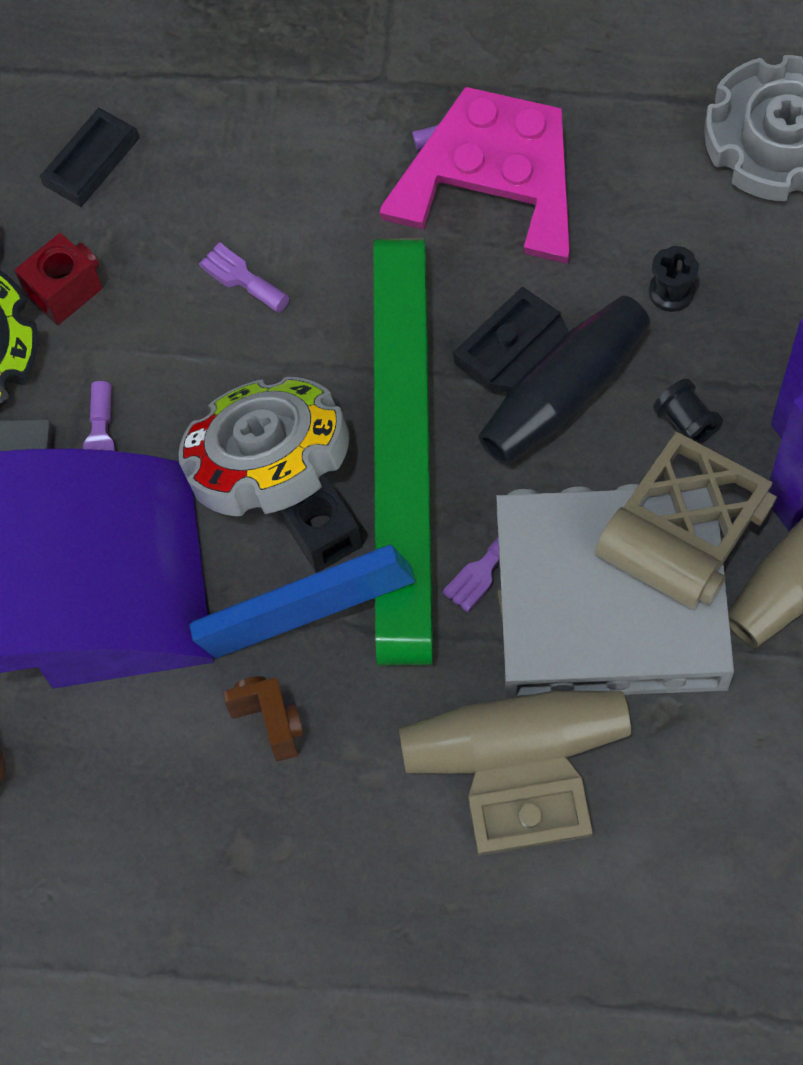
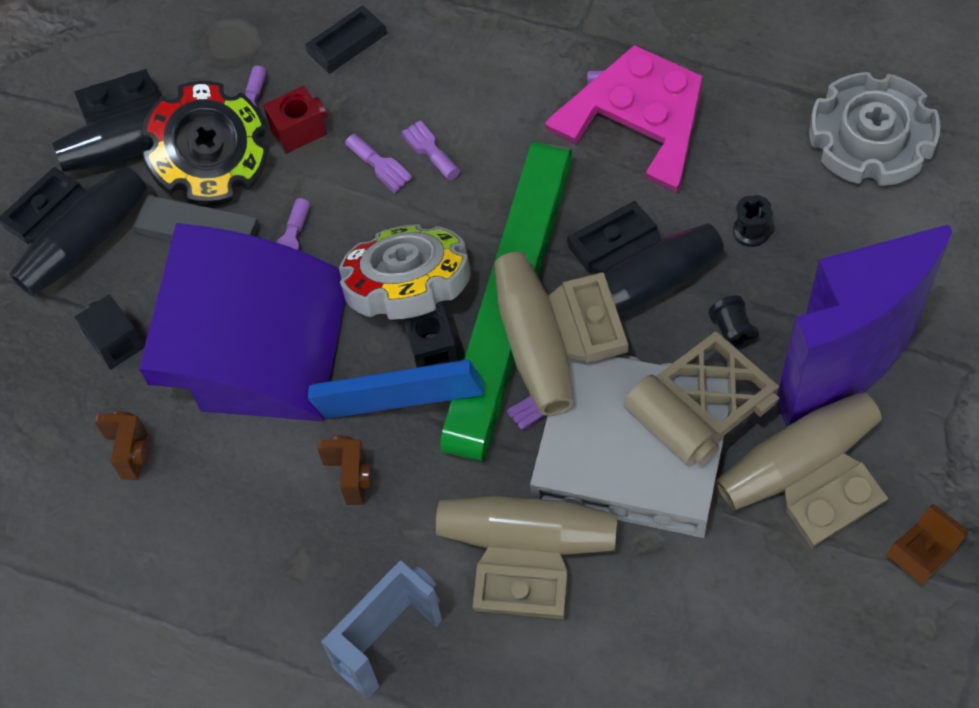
camera: 15 degrees right, 5 degrees down
(195, 316) = (386, 169): none -> medium lavender piece
(338, 953) = (372, 617): none -> sand blue panel
(474, 479) = (549, 329): none -> dark tan plate

